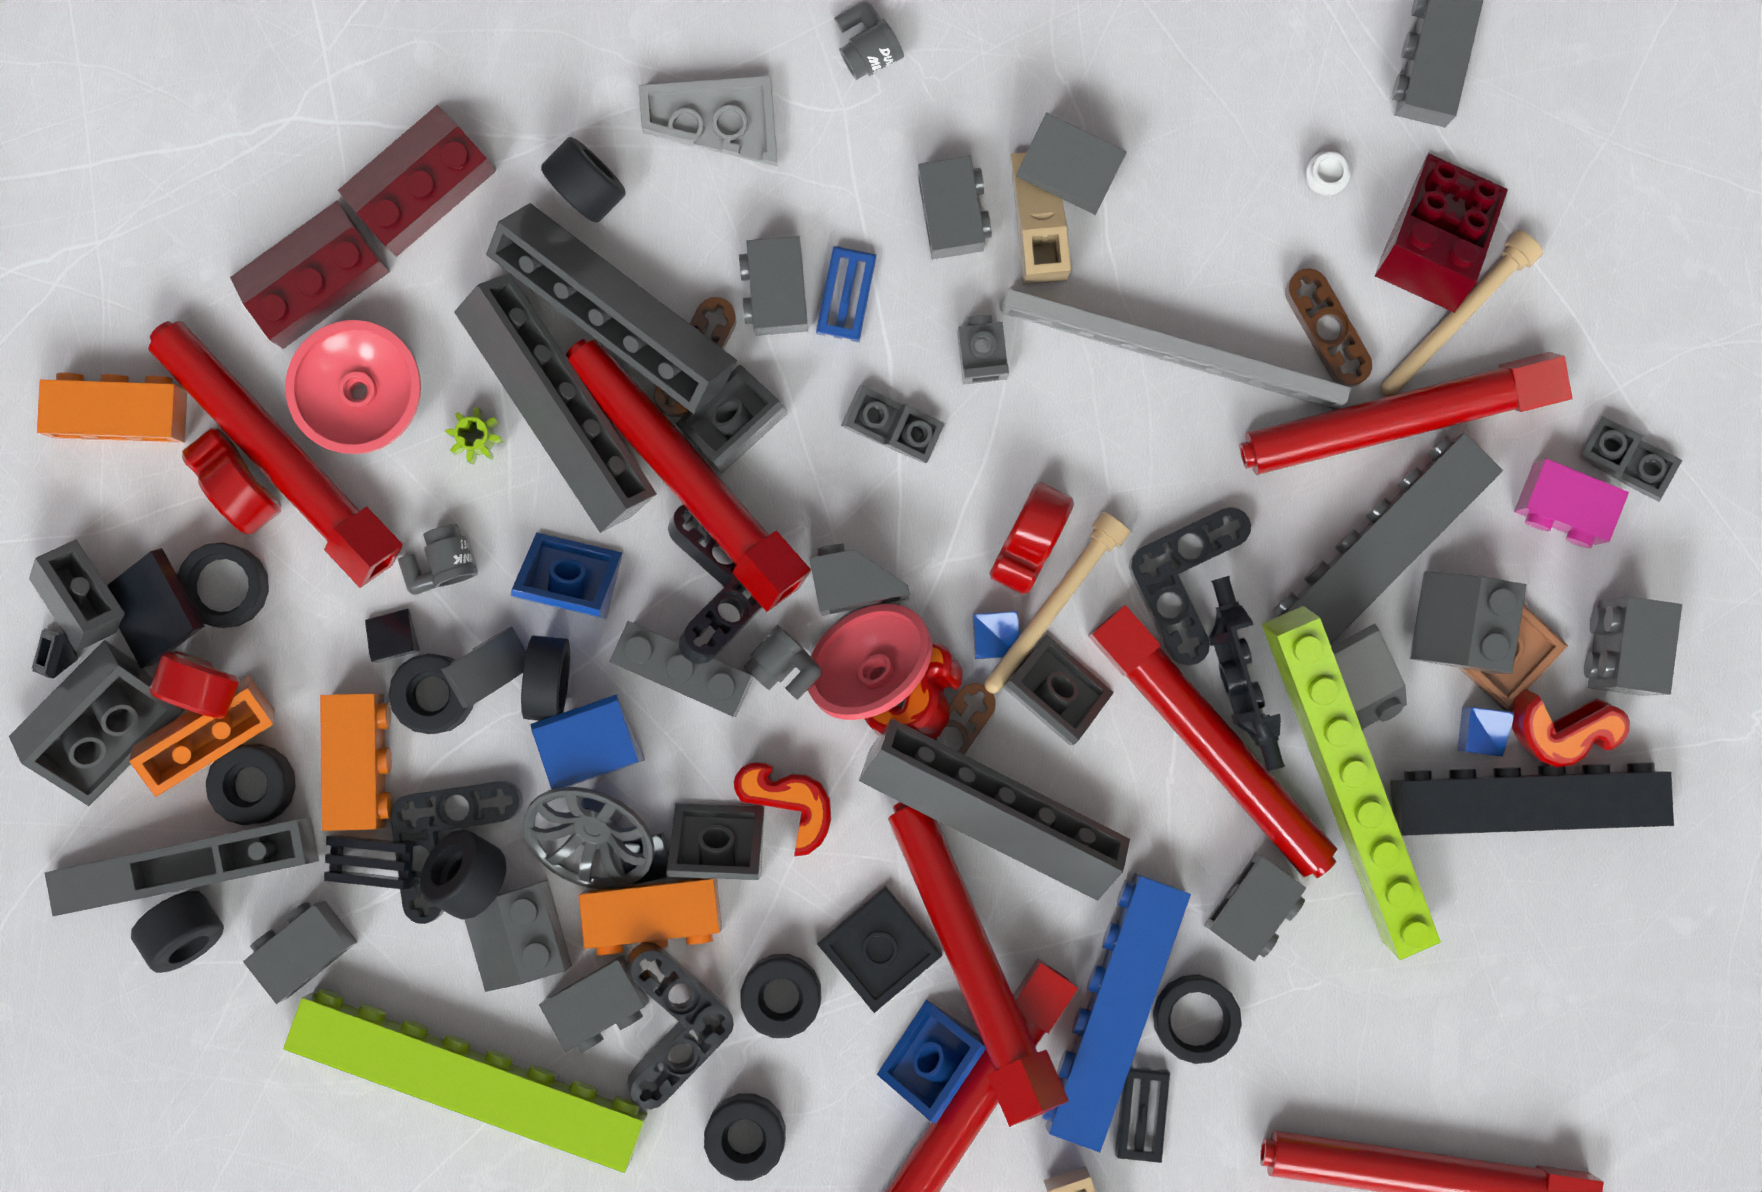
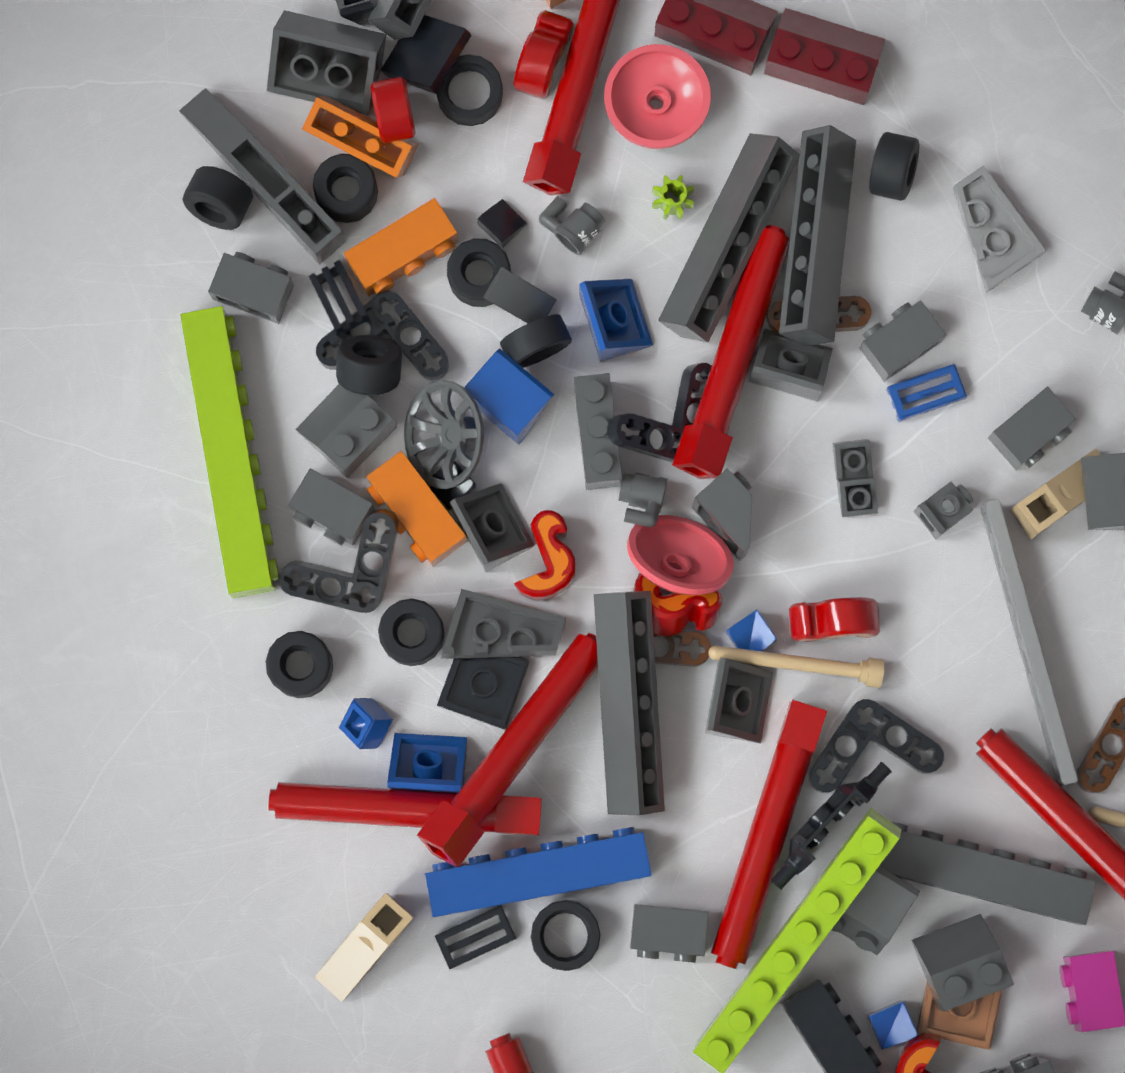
camera: 65 degrees right, 5 degrees down
(832, 899) = (500, 628): none -> dark grey wing
(849, 1100) = (365, 723): none -> blue slope

